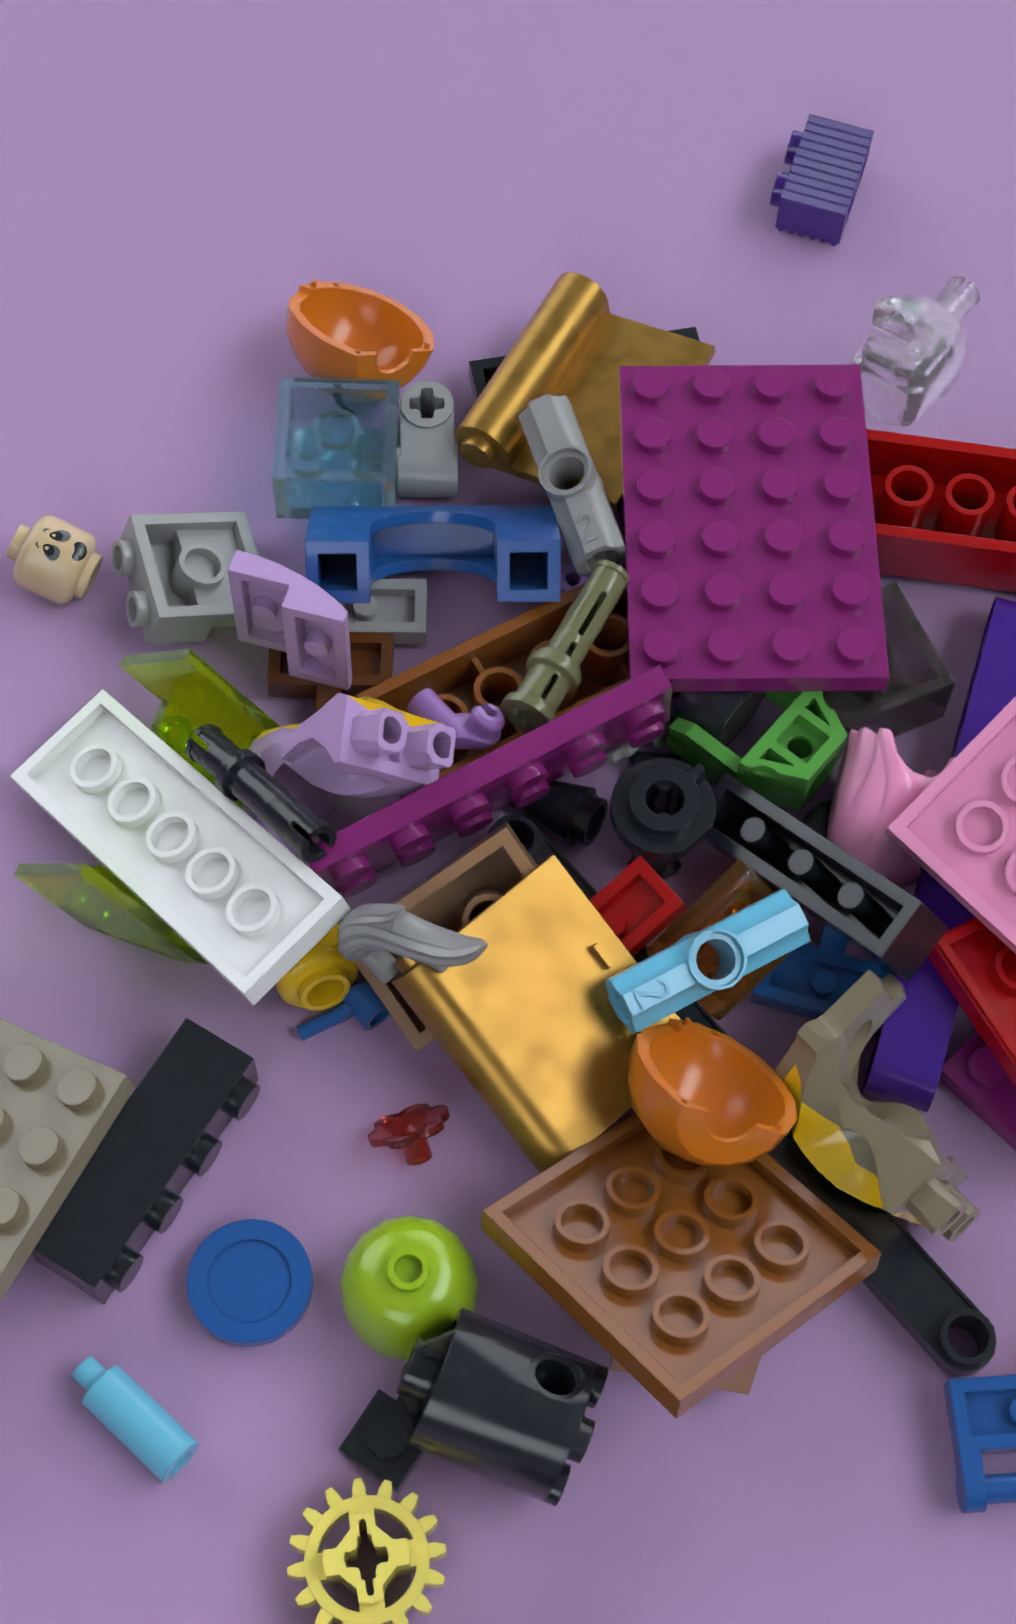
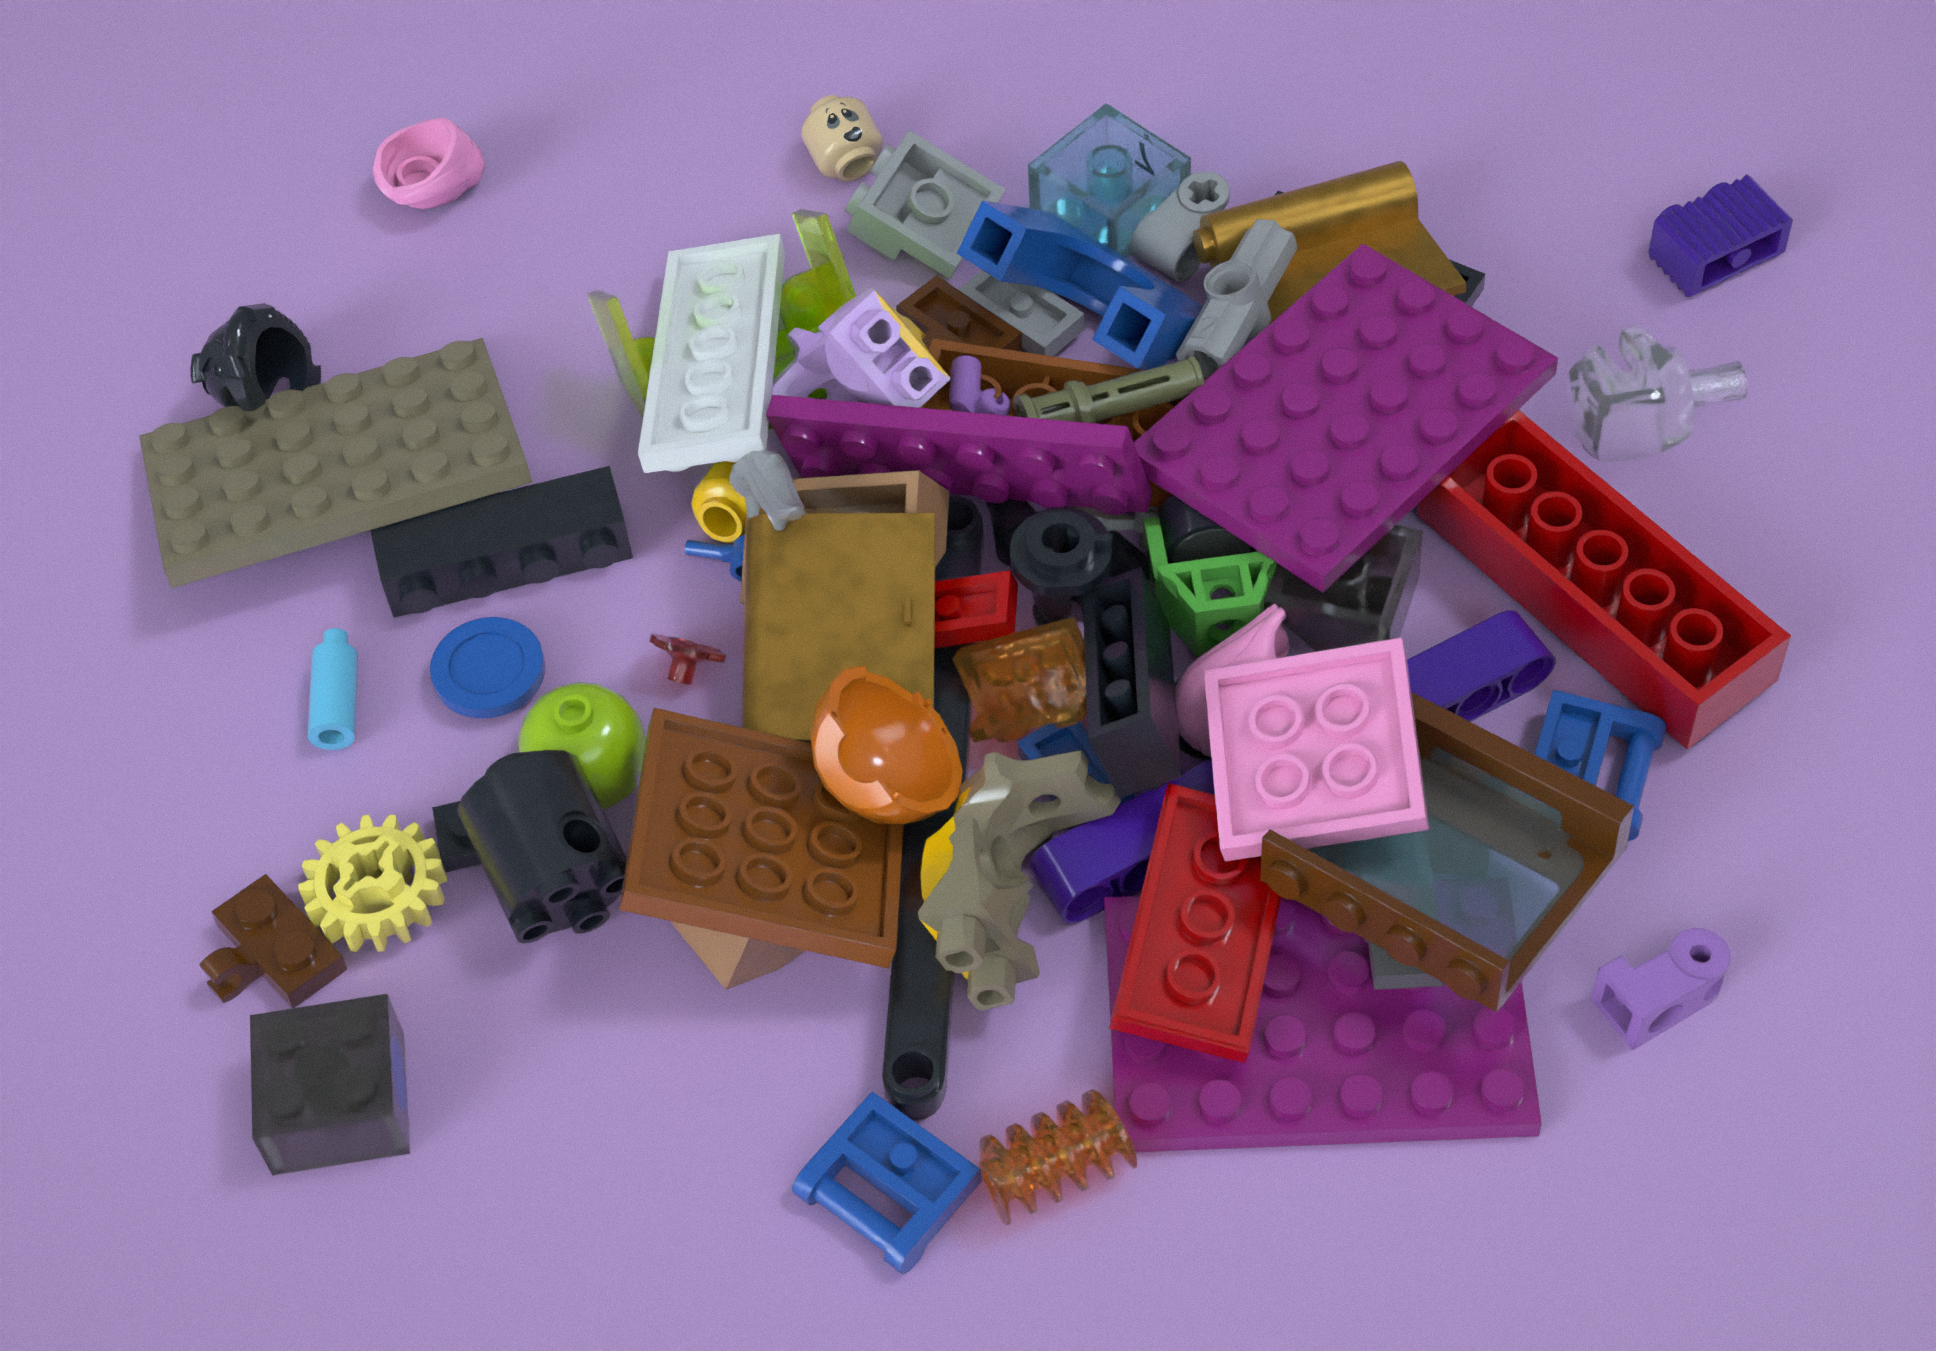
camera: 50 degrees right, 10 degrees down
(244, 777) = (788, 333): black pin -> none
(291, 616) = (932, 255): lavender slope -> none
(356, 334) = (1204, 114): orange cylinder -> none
(673, 978) = (1017, 672): medium azure piece -> none

